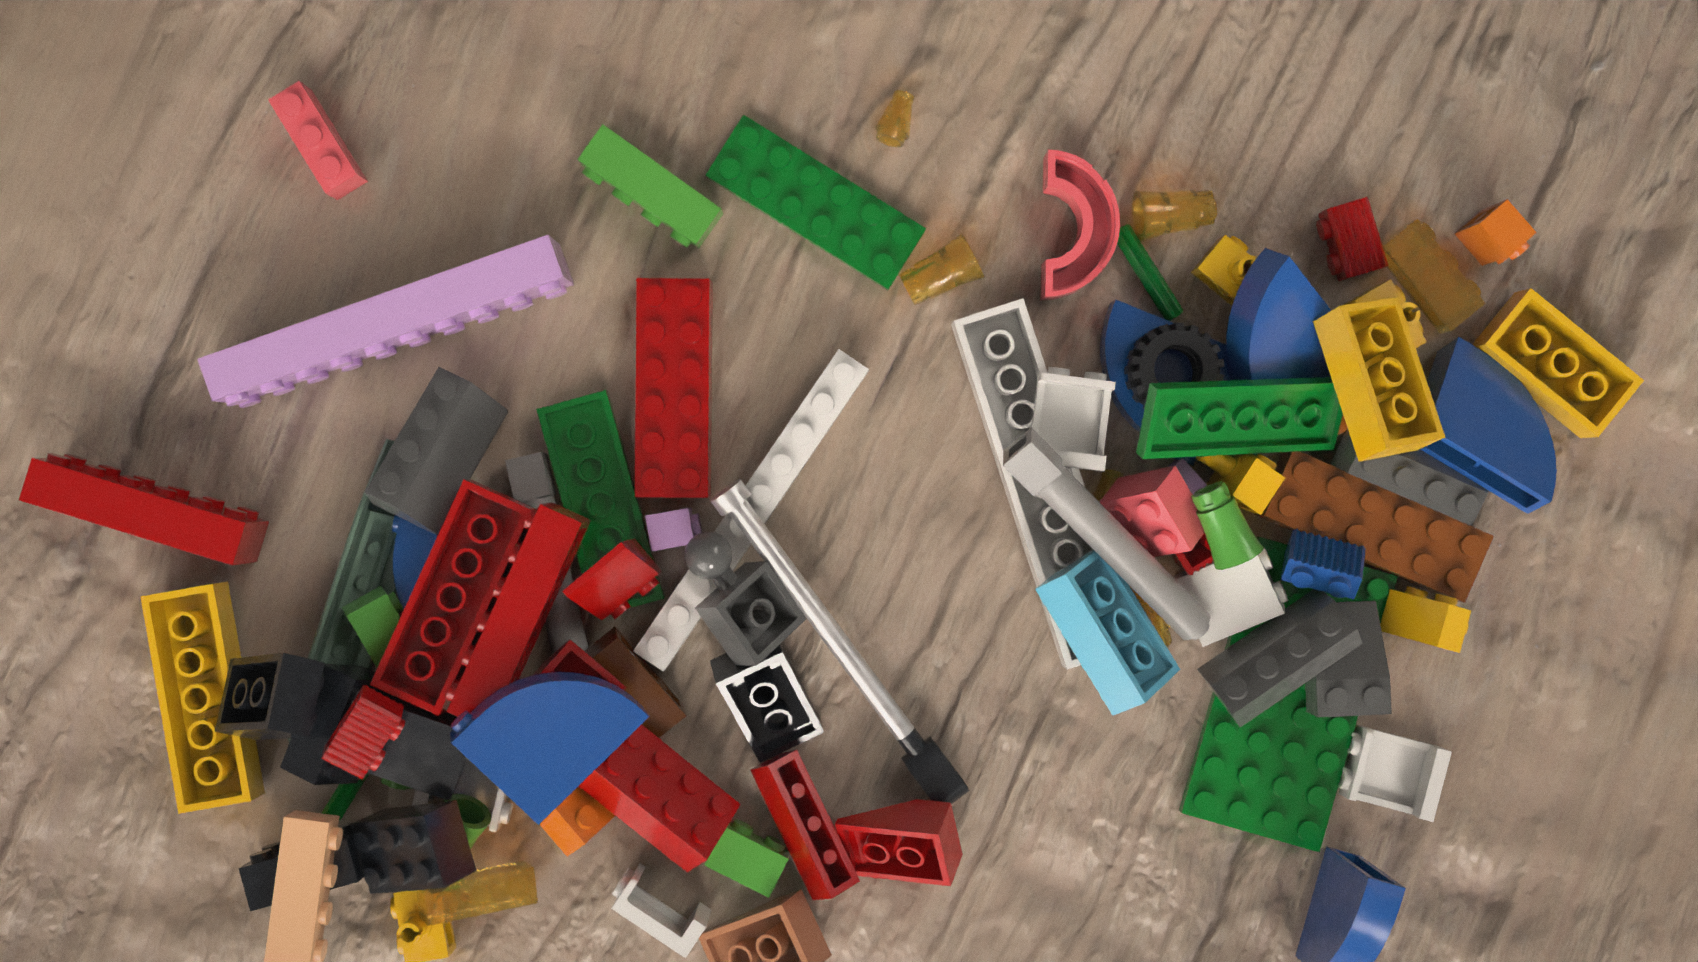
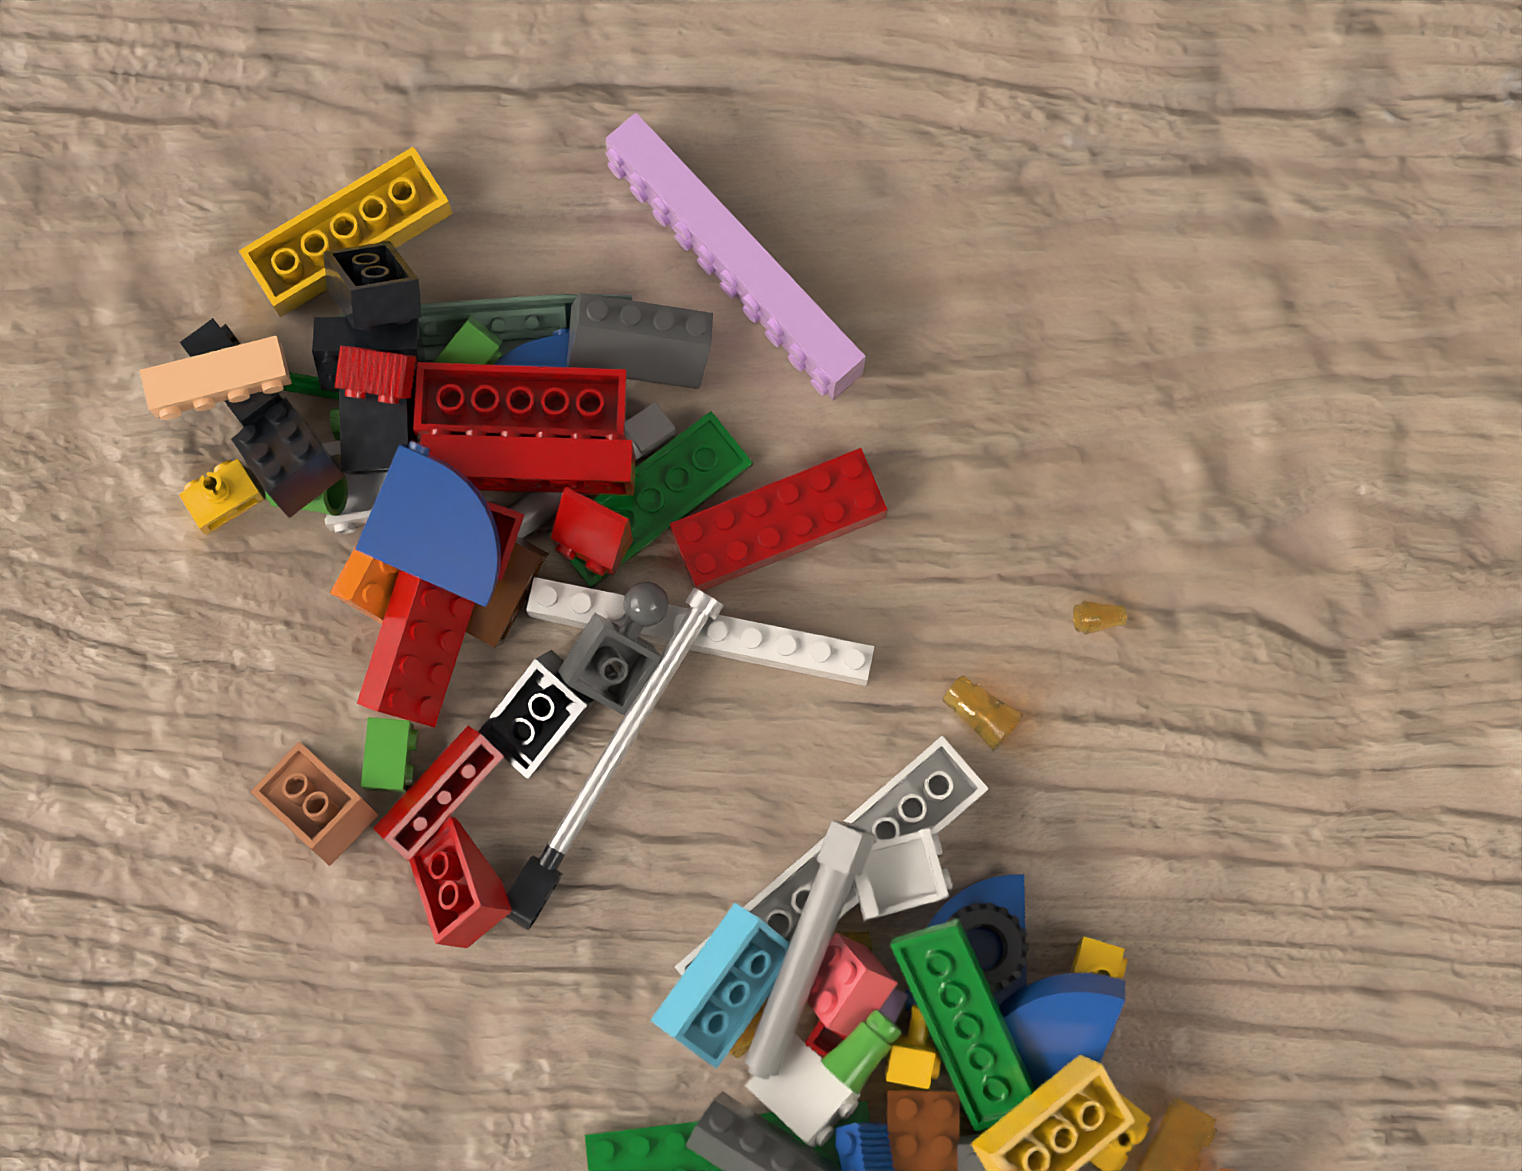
camera: 65 degrees right, 10 degrees down
(144, 509) = (489, 122): red brick -> none
(318, 140) = (862, 137): coral brick -> none
(480, 893) = (266, 529): clear yellow brick -> none
(649, 186) = (945, 429): bright green brick -> none
(656, 917) = (304, 693): white panel -> none
(672, 528) = (654, 566): lavender brick -> none
(815, 202) = (994, 578): green plate -> none
(1096, 219) = (1076, 833): coral brick -> none
(1148, 273) = (1061, 897): green axle -> none
(1171, 212) = (1124, 895): clear yellow plant -> none
(1351, 239) = (1172, 1070): red brick -> none

